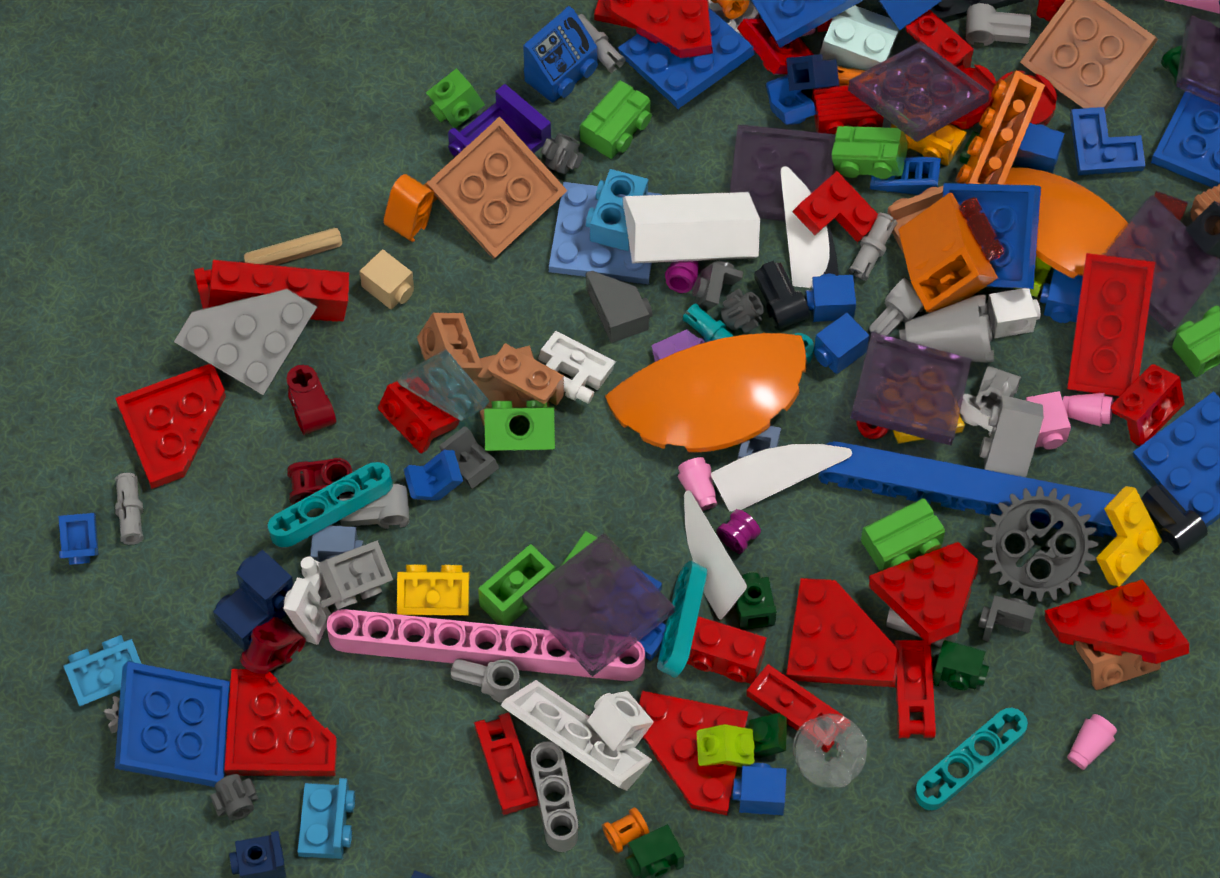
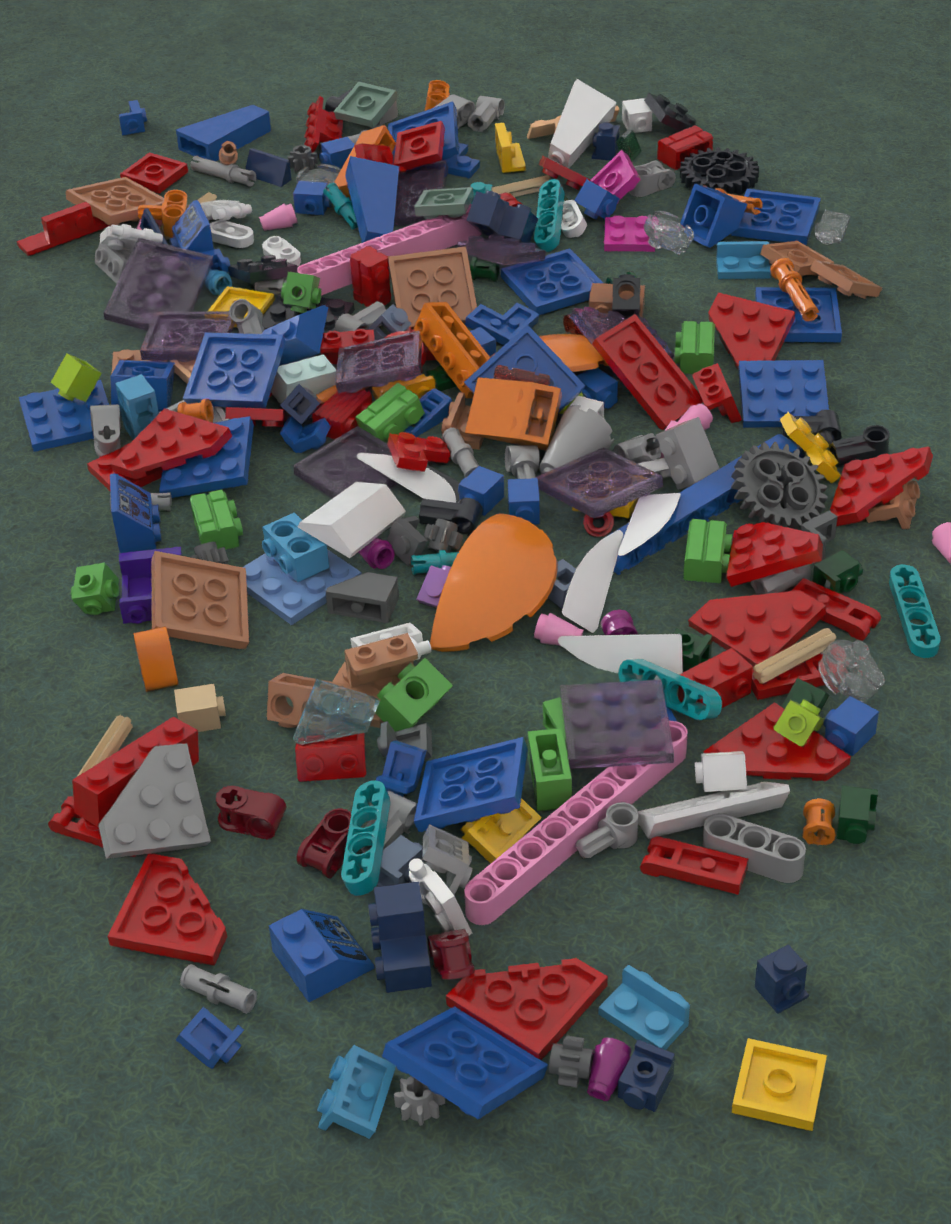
camera: 50 degrees left, 20 degrees down
(209, 550) = (317, 952): none -> blue slope
(249, 825) = (607, 1067): none -> magenta cone
(449, 541) = (472, 785): none -> blue plate
(808, 693) = (793, 655): none -> tan axle
(891, 464) = (647, 519): none -> white sticker
(1003, 54) = (393, 320): none -> sand blue brick
(1173, 578) = (866, 446): none -> black piece

